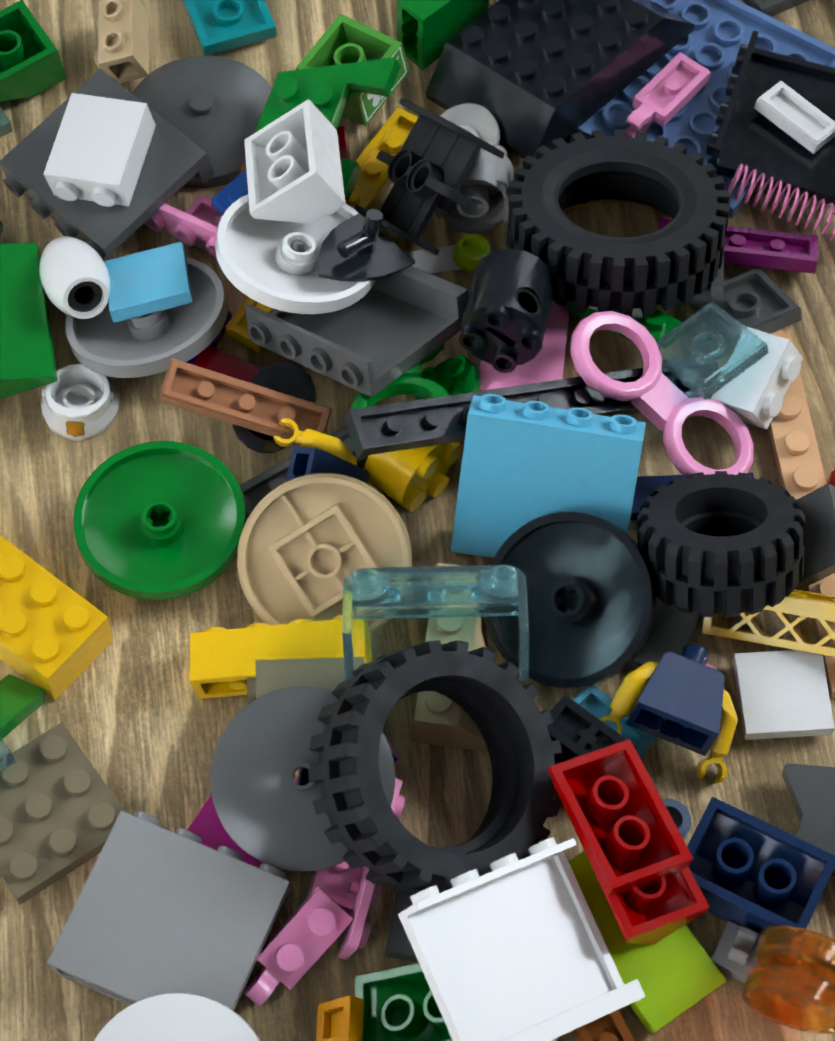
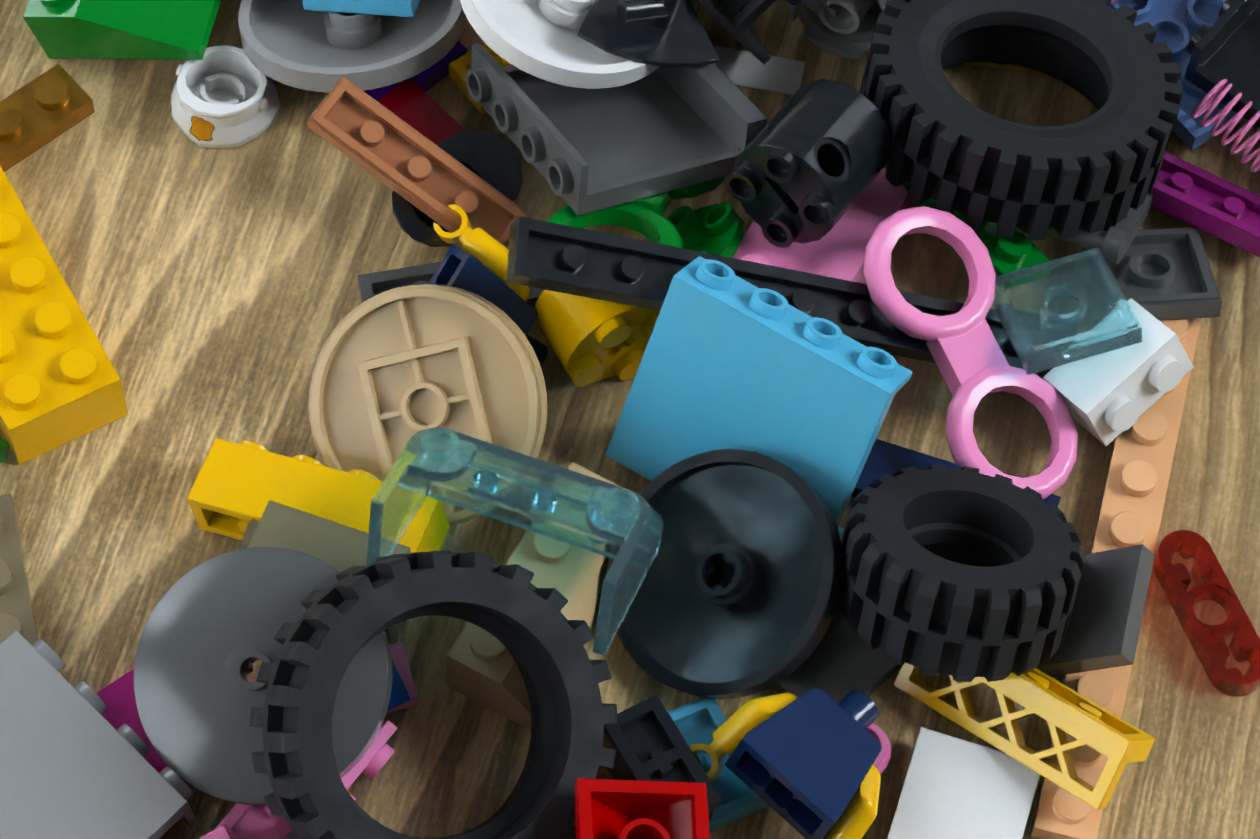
camera: 20 degrees right, 0 degrees up
(159, 520) = (245, 280): green dish -> none
(470, 251) = (813, 68): lime plate -> none

